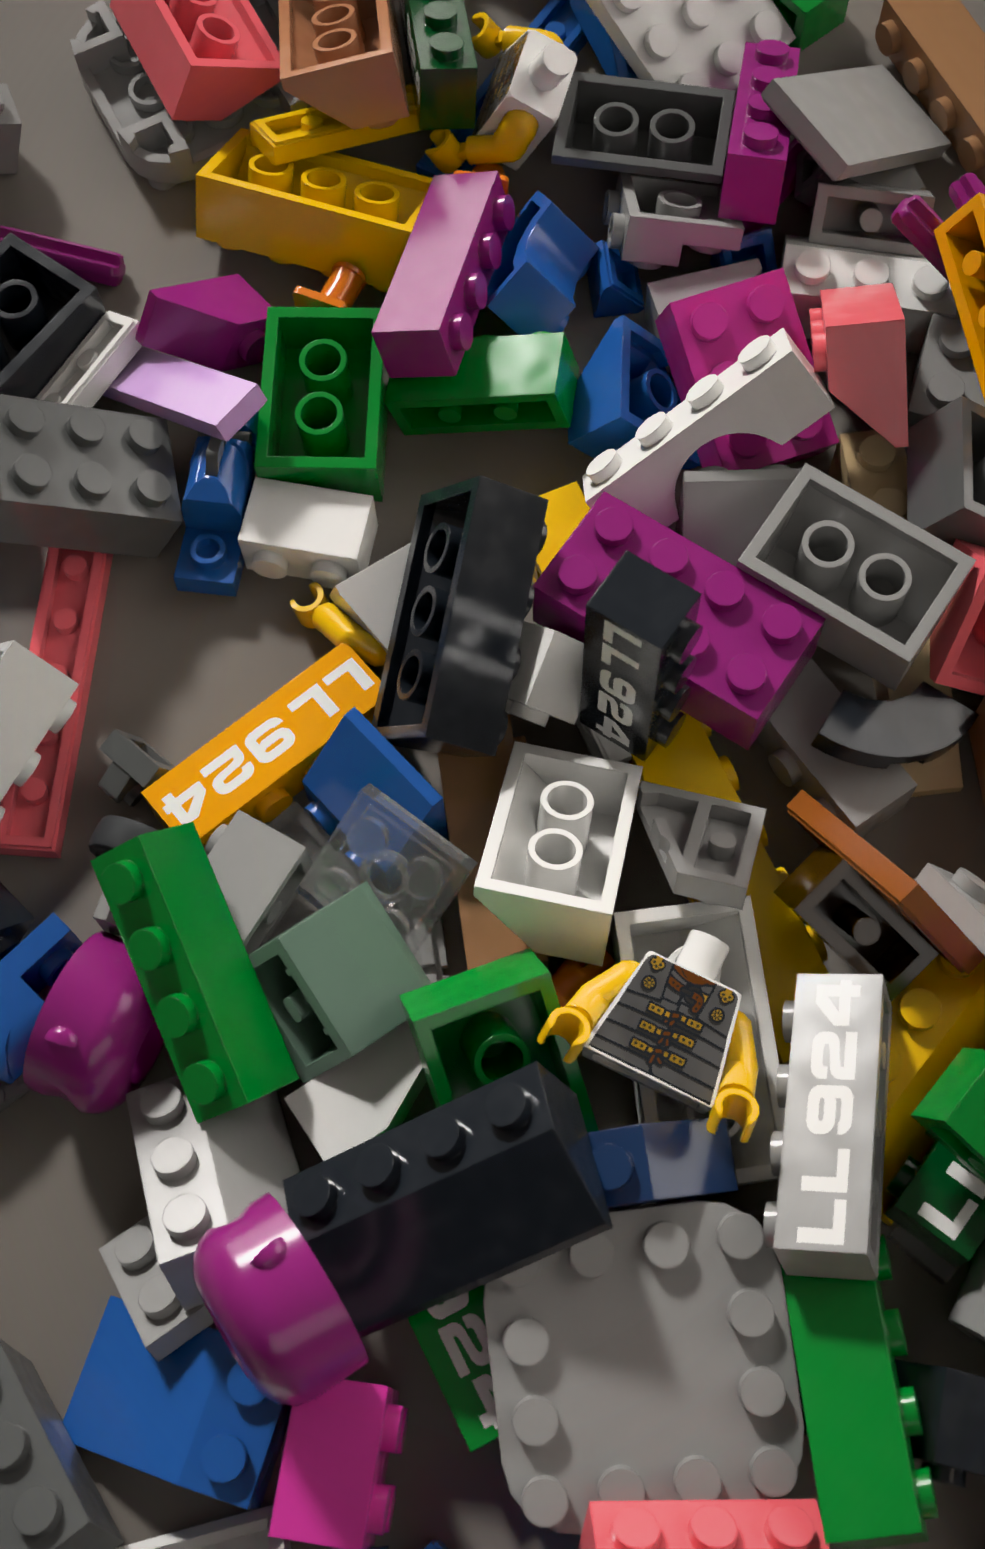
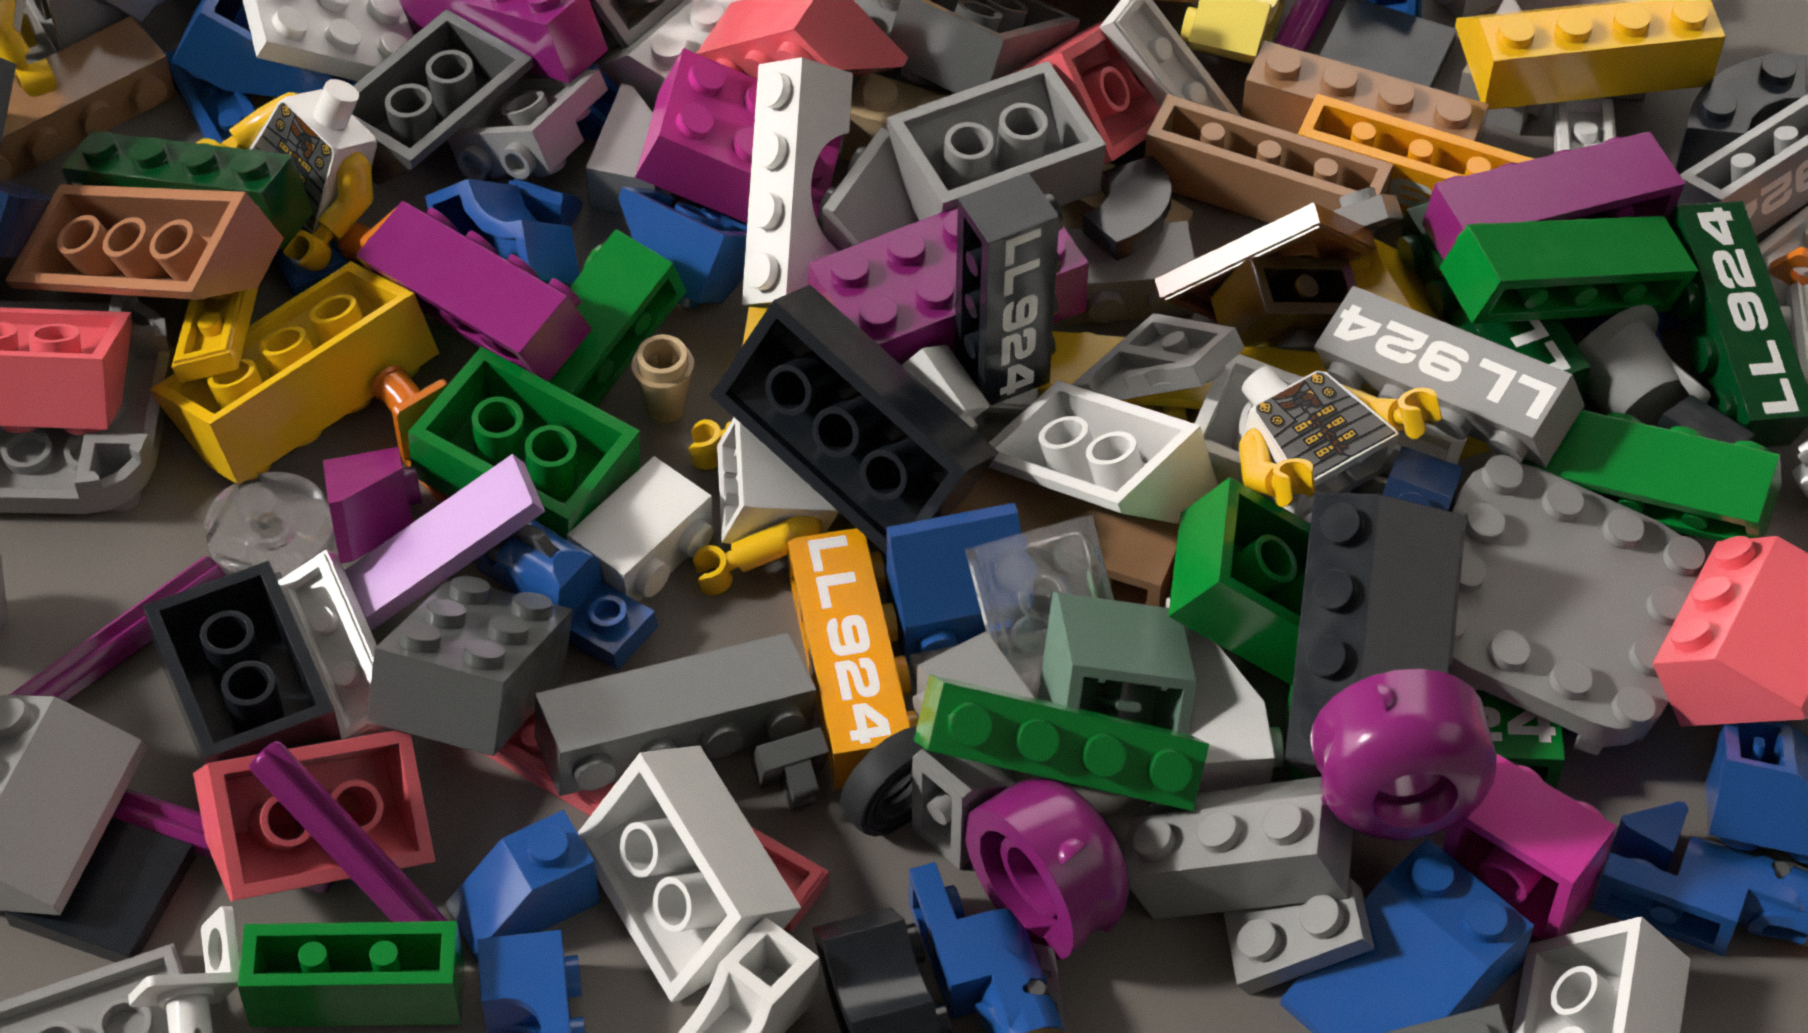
camera: 65 degrees left, 15 degrees down
(126, 650) = (708, 699): none -> dark grey brick
(160, 256) = (274, 499): none -> clear plate
(467, 451) = (663, 374): none -> tan cone

